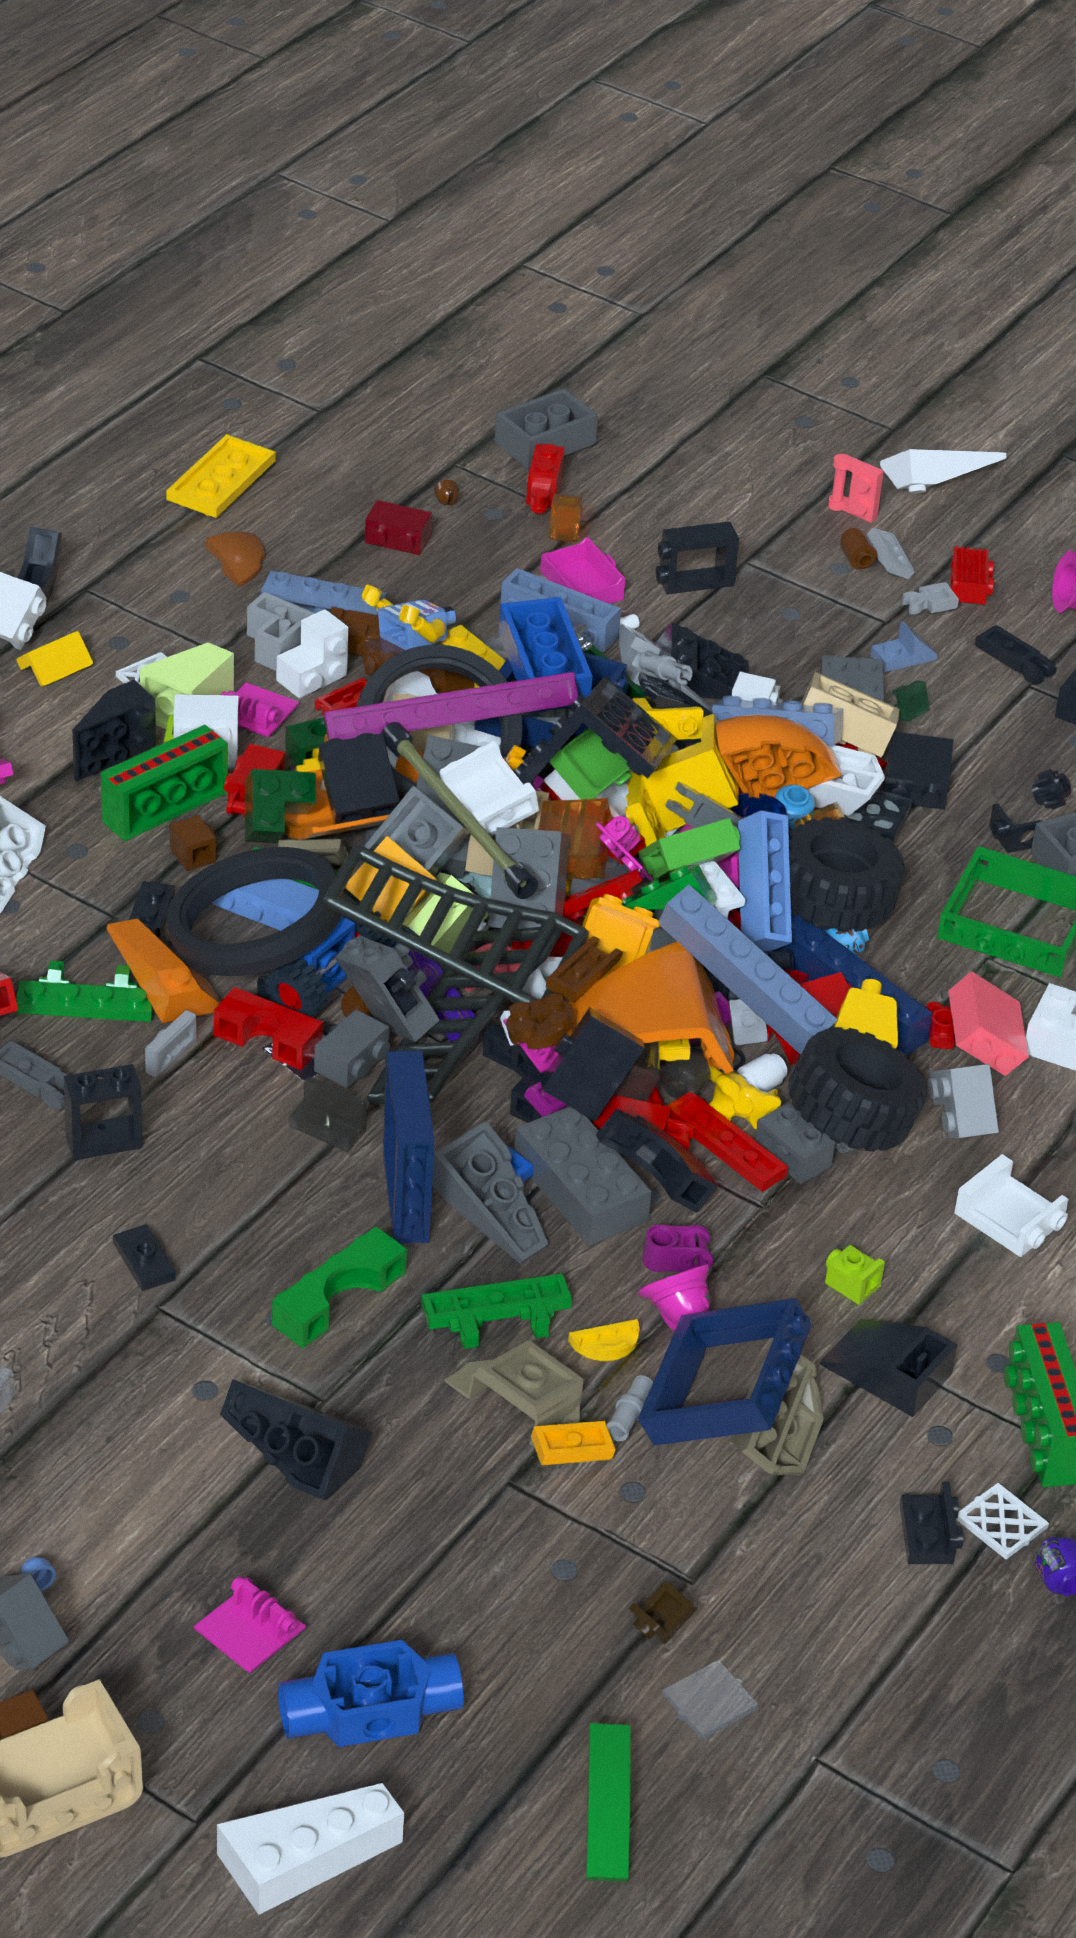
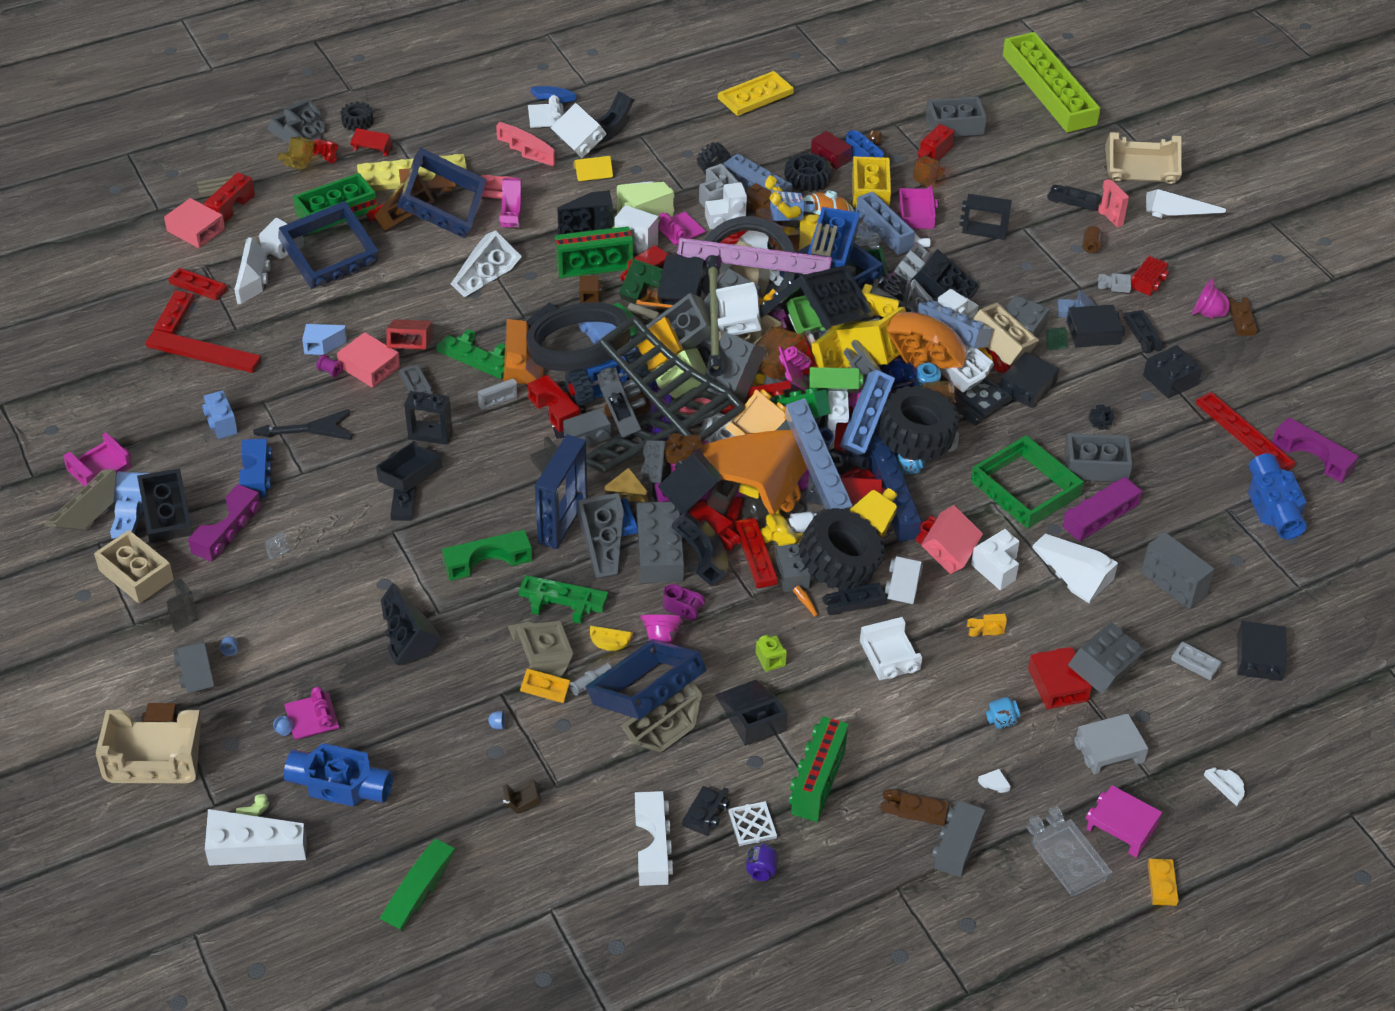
camera: 30 degrees right, 5 degrees up
(119, 1200) = (408, 467): none -> black container
(225, 1658) = (283, 725): none -> medium blue hinge
(239, 555) = (734, 138): dark orange brick -> none
(239, 589) = (708, 154): none -> black tyre
(272, 1796) = (257, 808): none -> yellowish green arm
(389, 566) = (808, 171): none -> black gear
(452, 515) = (862, 146): none -> blue beam
(469, 605) = (828, 199): none -> orange dish
(490, 1104) = (628, 487): none -> pearl gold slope
(491, 551) = (871, 175): none -> yellow brick
(504, 1057) = (653, 464): none -> dark grey hinge
(538, 635) = (826, 230): none -> dark tan tile
(538, 1520) = (497, 720): none -> medium blue hinge
(582, 970) = (726, 427): reddish brown hinge -> none
(641, 341) = (1051, 82): none -> lime brick
(665, 667) = (911, 273): light grey pin -> none
(710, 1699) = (517, 853): clear piece -> none
(787, 496) = (1074, 197): none -> black hinge
(840, 1182) = (804, 598): none -> orange helmet
(848, 416) = (1143, 159): none -> tan windscreen
(862, 1562) = (653, 861): none -> white arch
(890, 553) = (1110, 248): light grey plate -> none
(911, 1155) = (854, 599): none -> black hinge
(949, 666) = (1095, 326): none -> black brick
(1007, 833) = (1056, 434): black bracket -> none

